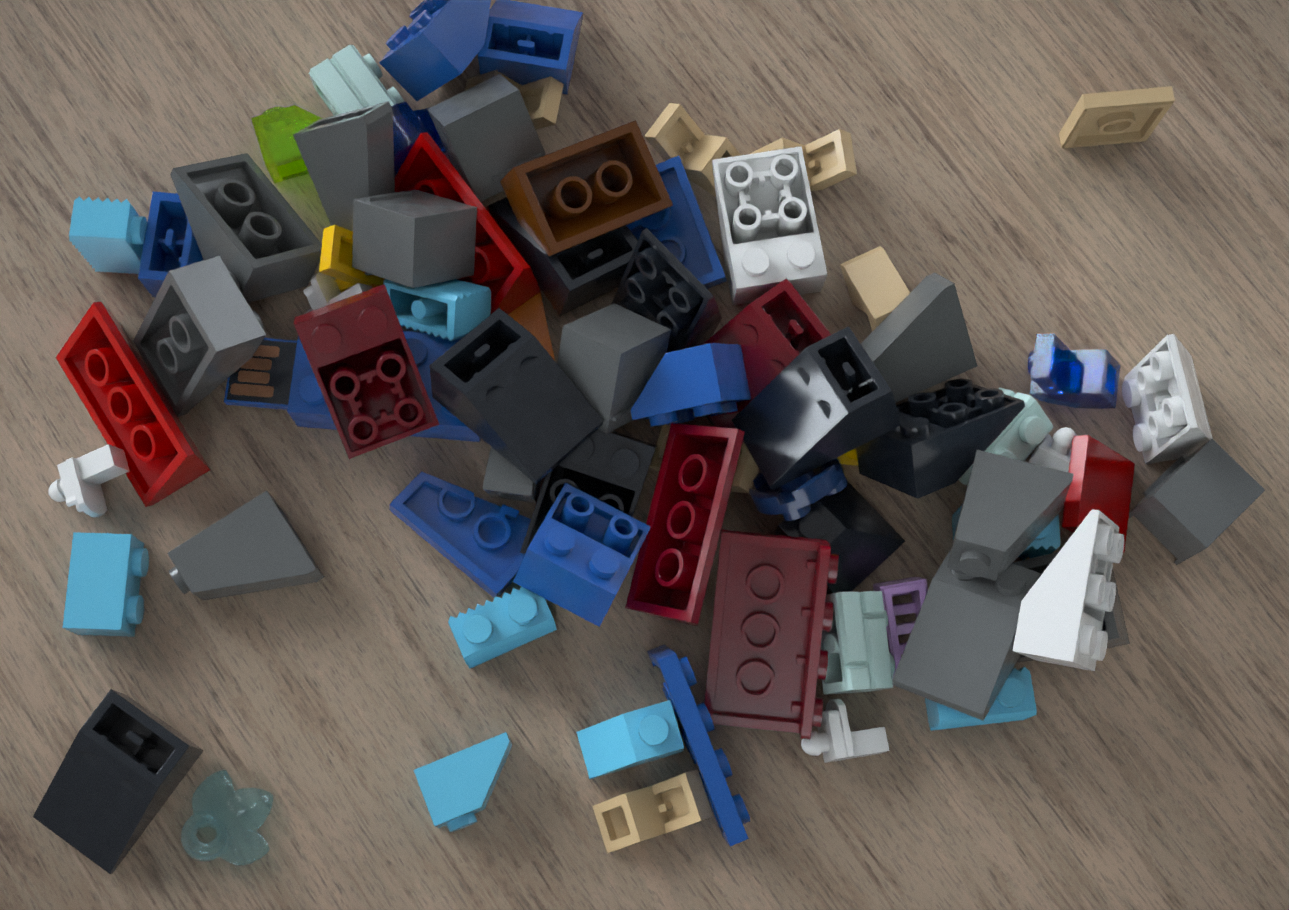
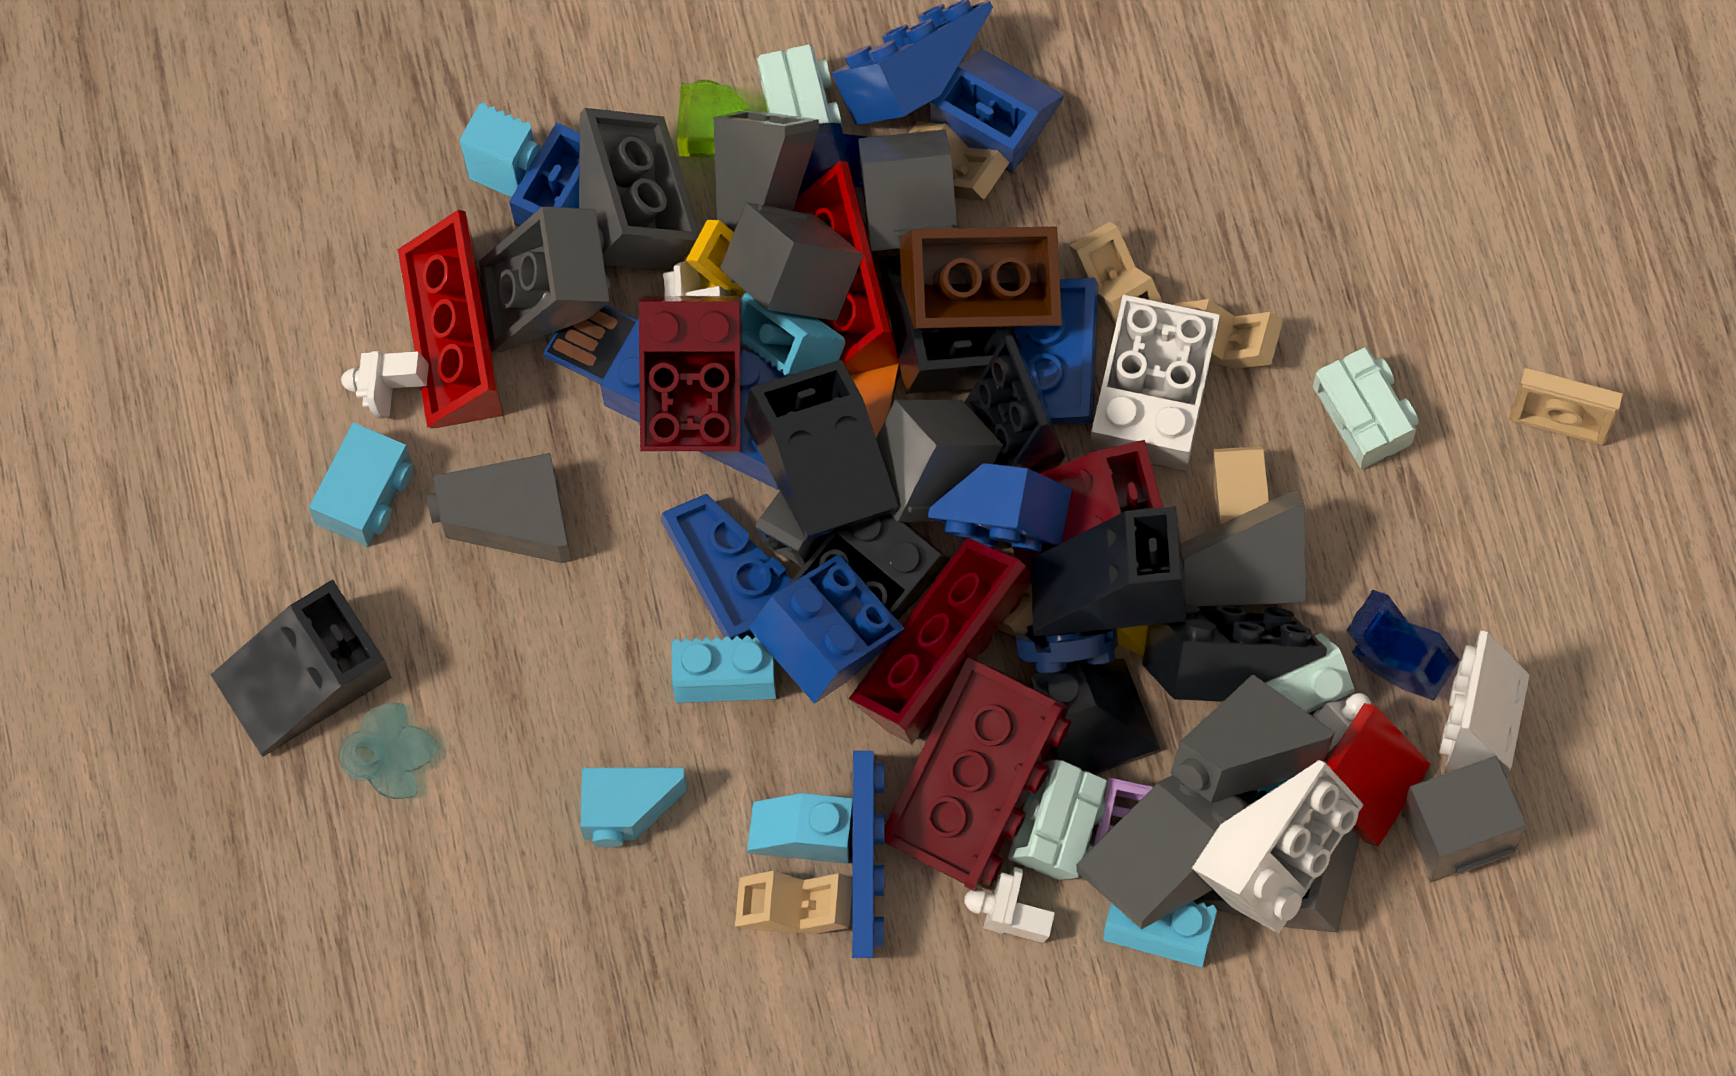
camera: 30 degrees right, 5 degrees down
(948, 180) = (1365, 407): none -> light aqua brick

